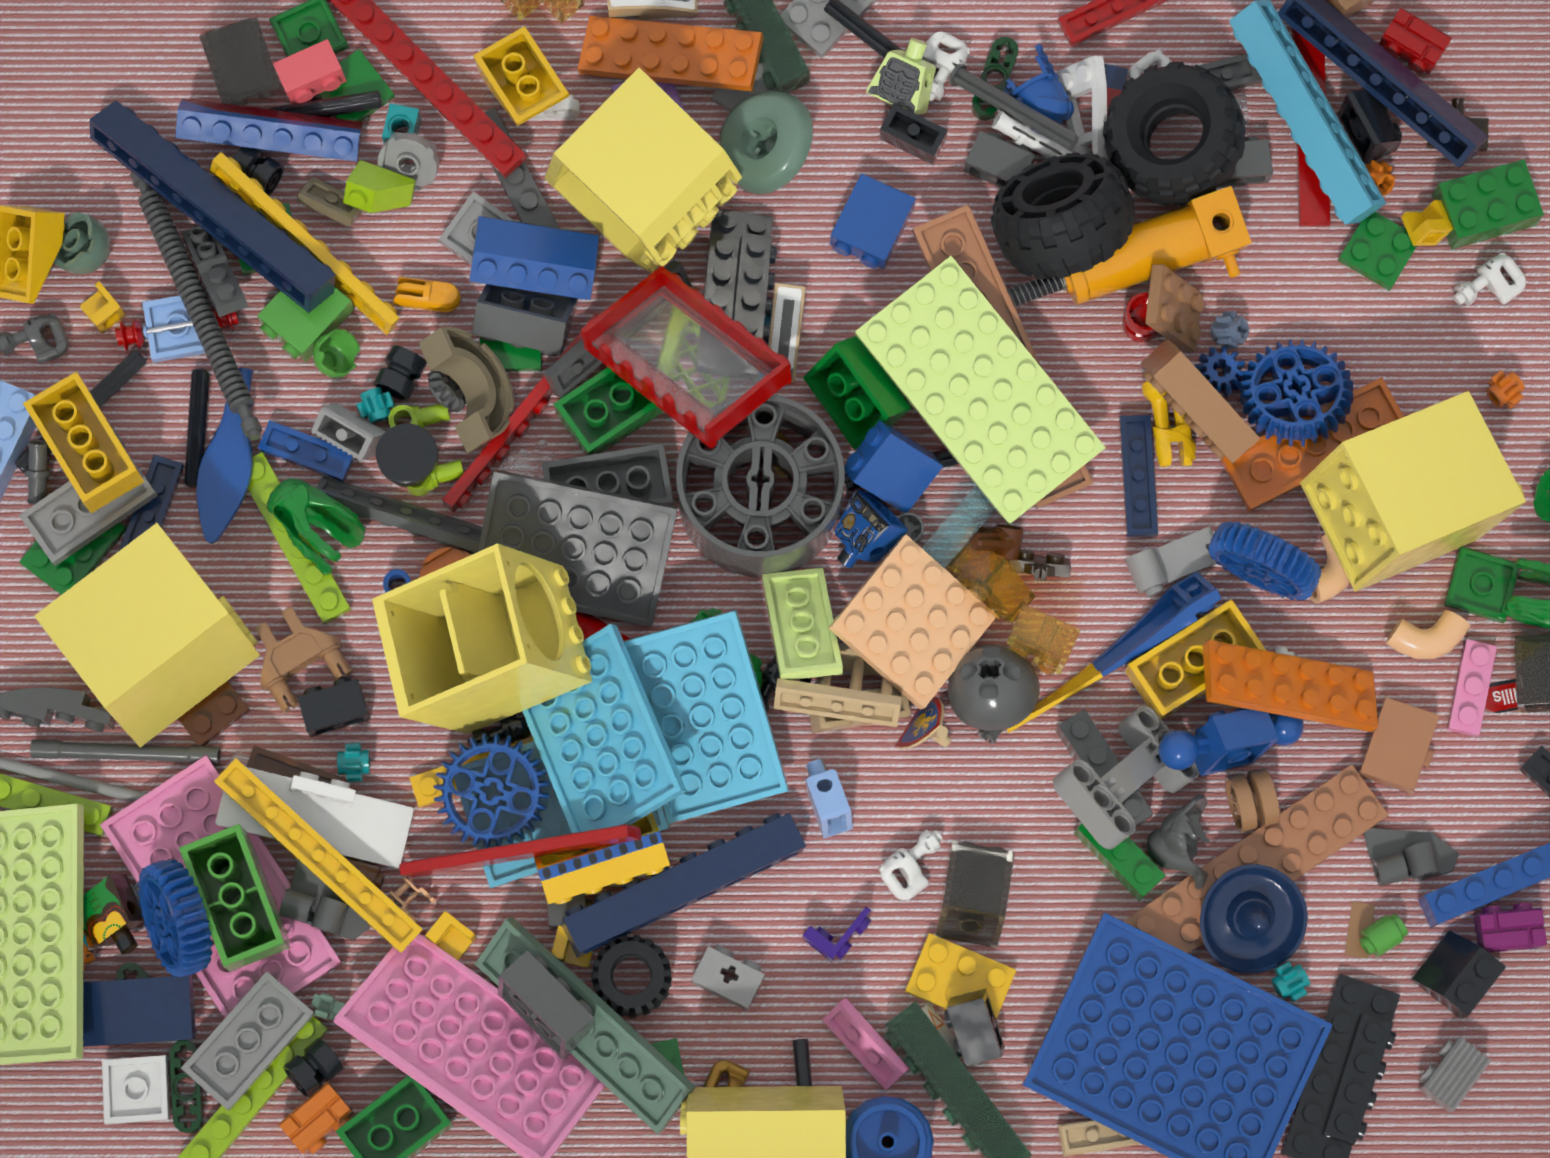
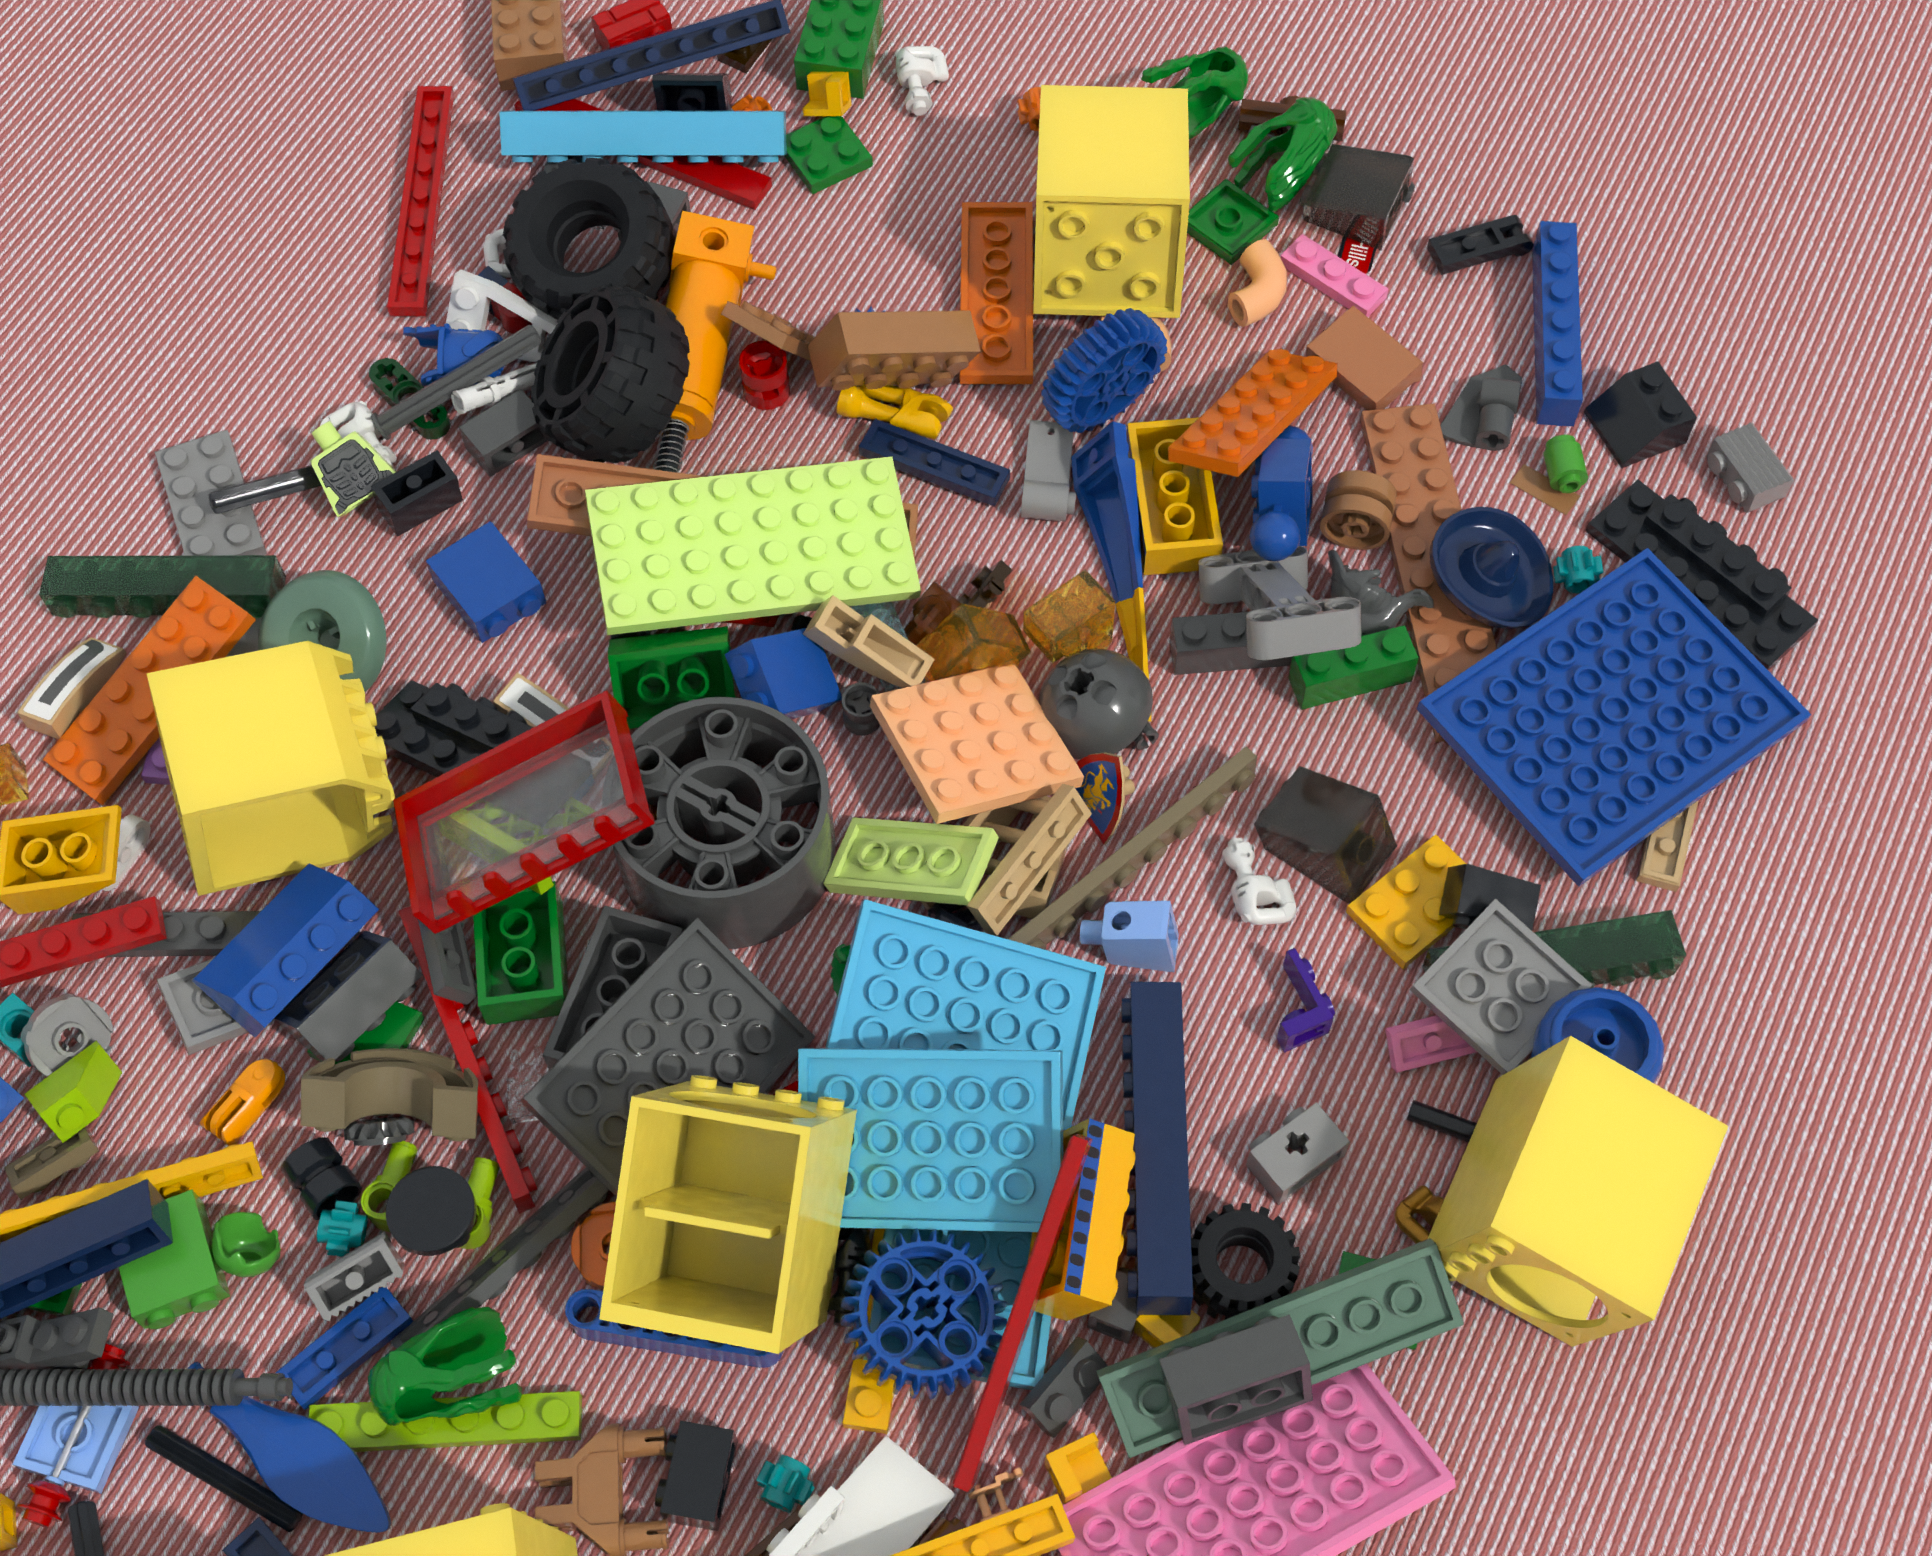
camera: 60 degrees left, 15 degrees down
(498, 902) = (1064, 1387): none -> dark grey plate
(867, 529) = (845, 742): blue torso -> none
(901, 776) = (1145, 847): none -> dark tan plate
(906, 1058) = (1497, 986): none -> light grey plate
(945, 511) = (867, 644): none -> tan slope
(1230, 329) = (826, 305): sand blue gear -> none
(1296, 391) = (932, 270): blue gear -> none
(1510, 929) = (1613, 348): magenta brick -> none

